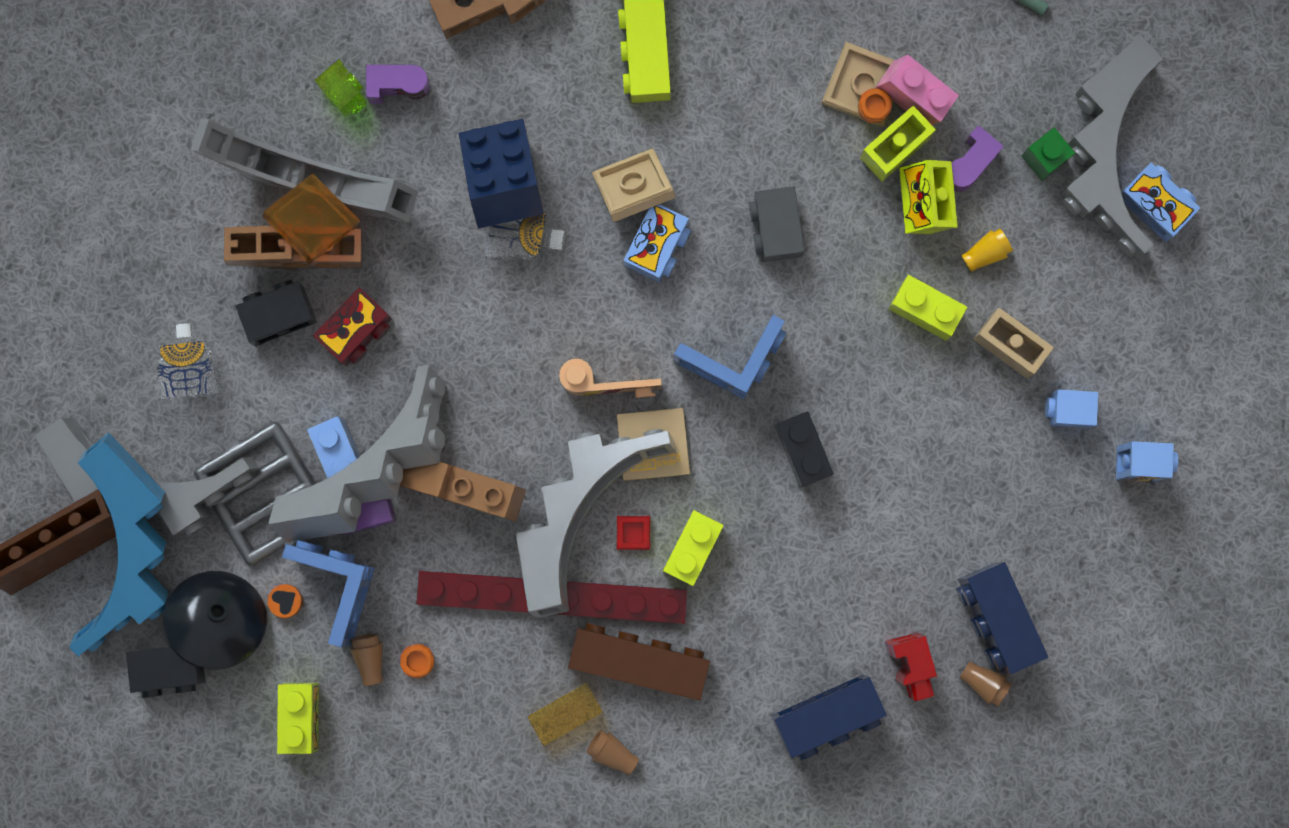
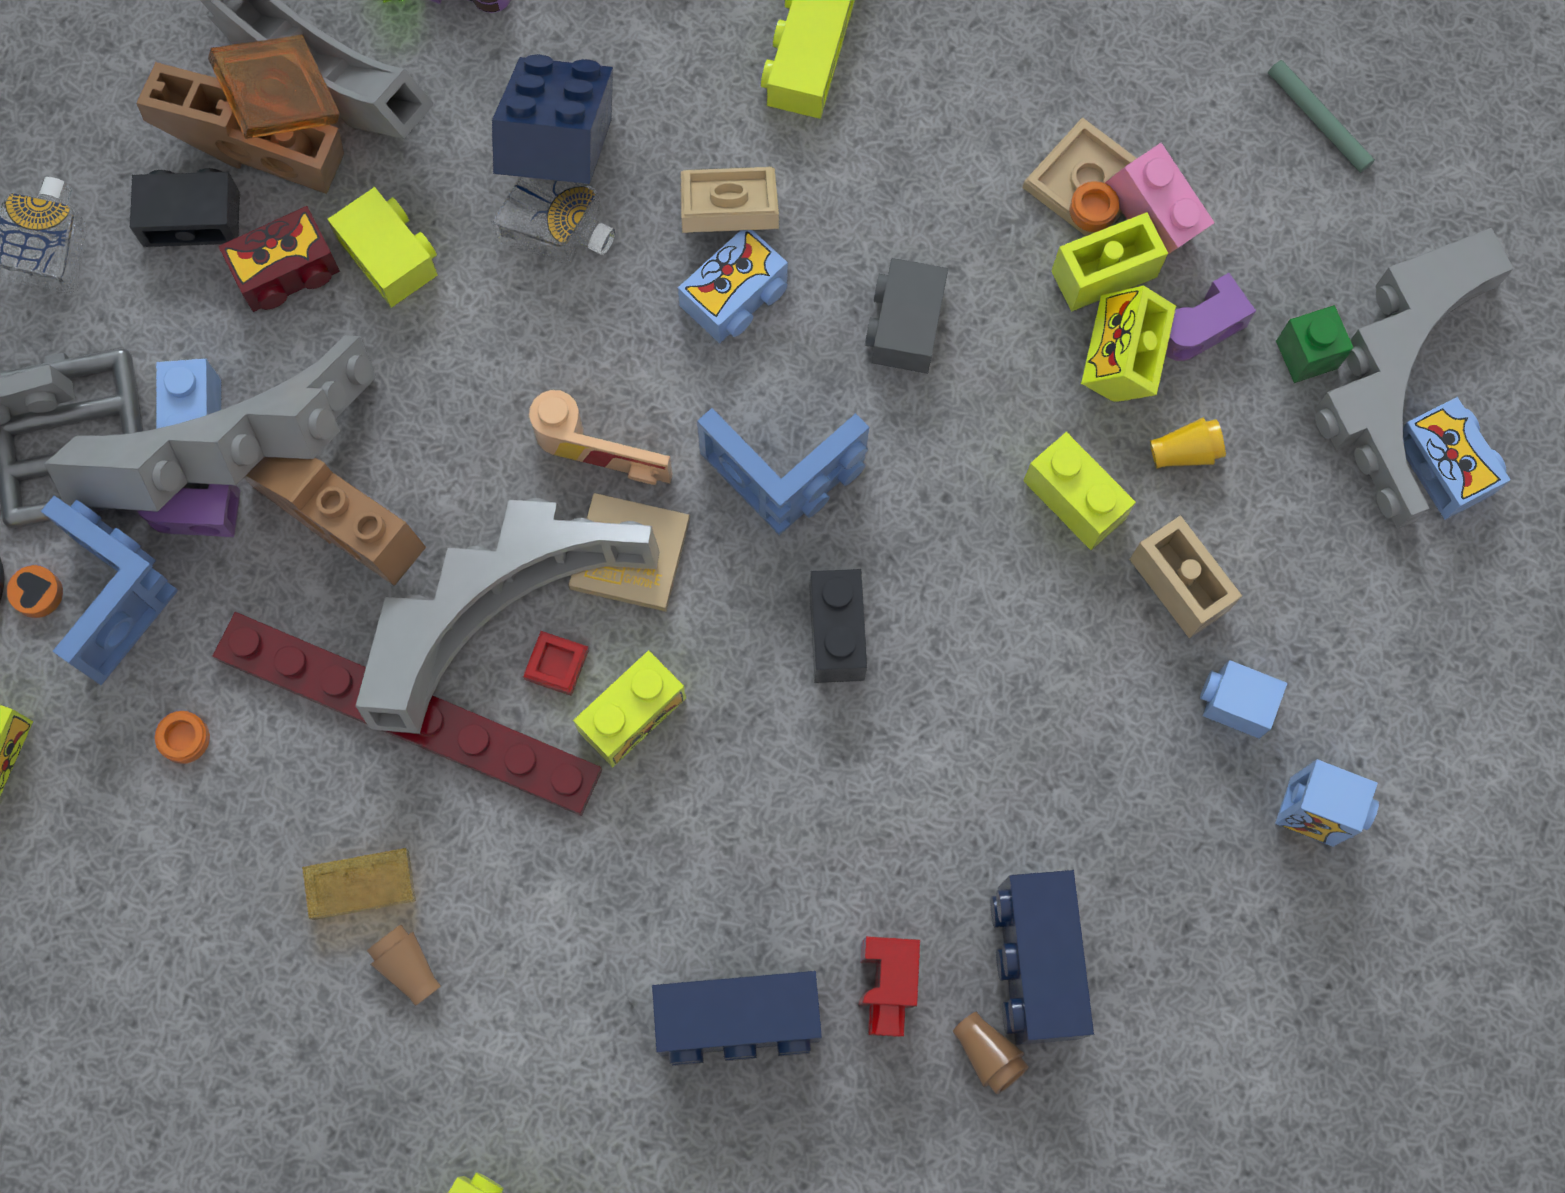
camera: 10 degrees right, 10 degrees down
(367, 655) = (113, 708): medium nougat cone -> none
(417, 294) = (383, 245): none -> neon yellow brick
(639, 663) = (493, 846): reddish brown brick -> none

